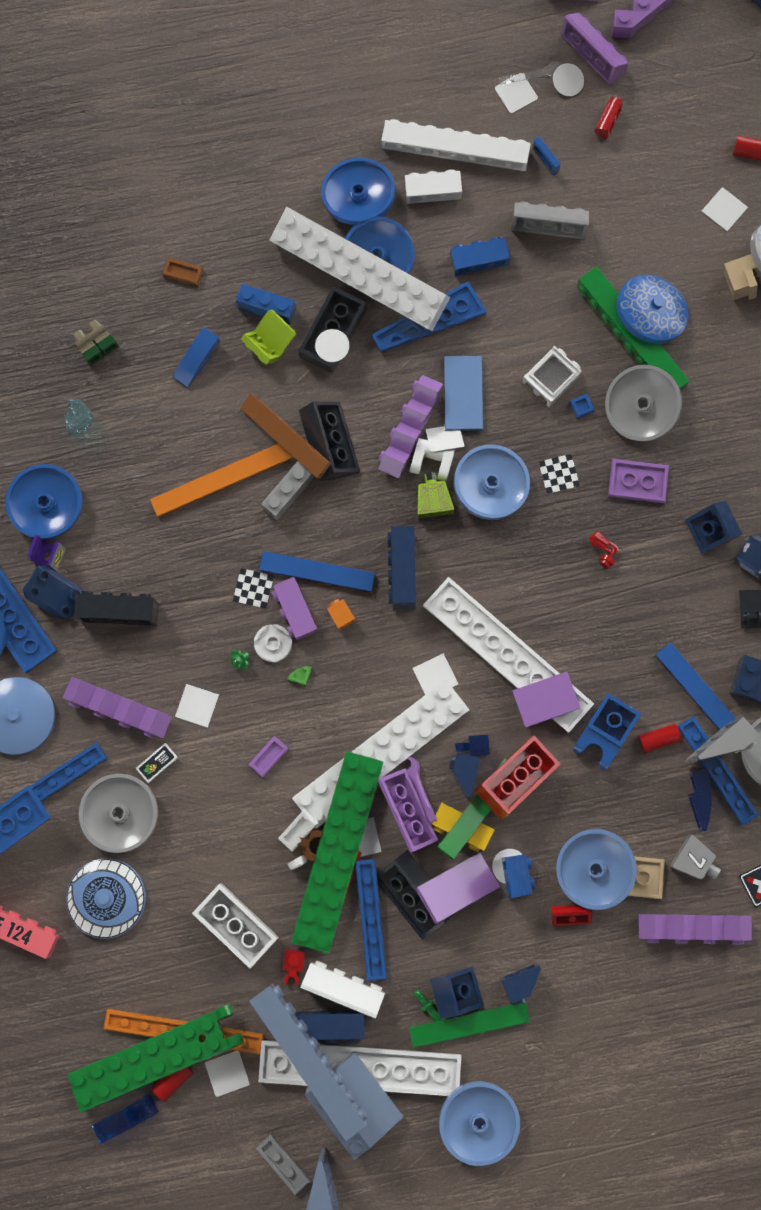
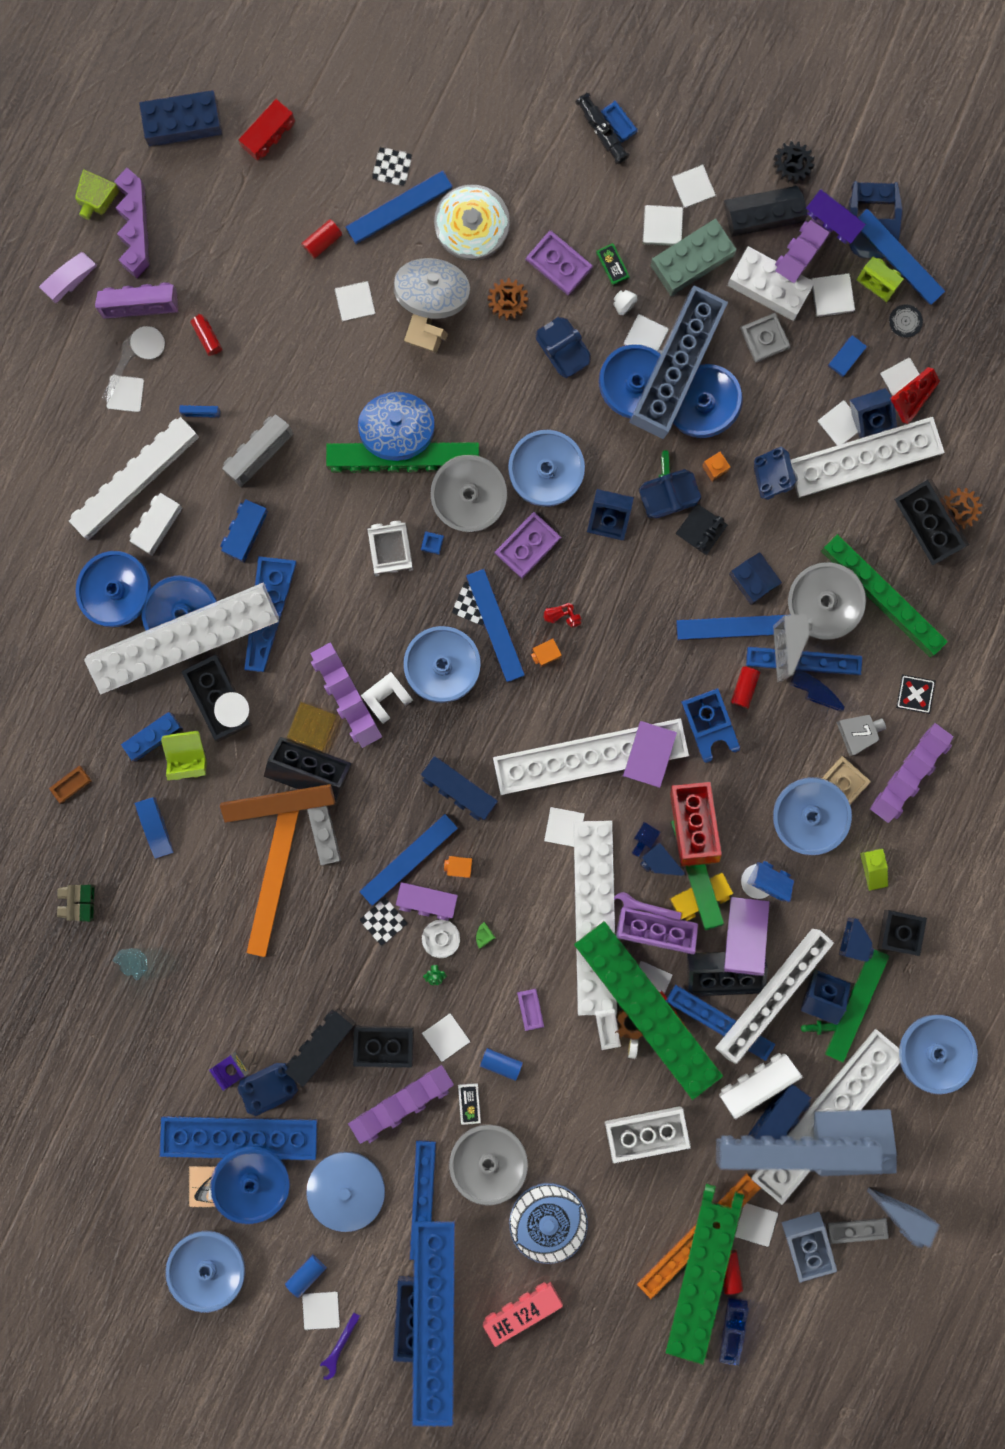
camera: 55 degrees left, 5 degrees up
(44, 501) = (183, 1042): blue dish -> none
(153, 659) = (383, 1046): none -> black brick
(207, 764) = (501, 1064): none -> blue brick
(240, 1131) = (809, 1246): none -> sand blue slope
(293, 962) = (709, 1109): red plate -> none
(366, 419) = (311, 726): none -> clear yellow tile
(426, 947) = (774, 995): none -> white brick
(433, 498) = (418, 720): lime torso -> none
(445, 438) = (375, 672): white sticker -> none
(463, 393) = (349, 630): medium blue tile -> none
(554, 502) = (495, 625): none -> blue tile
(557, 1017) = (902, 932): none -> black brick
(563, 557) = (545, 653): none -> orange brick
(570, 915) = (831, 863): red brick -> none
(592, 956) = (875, 869): none -> lime slope
(711, 448) = (546, 468): none -> medium blue dish

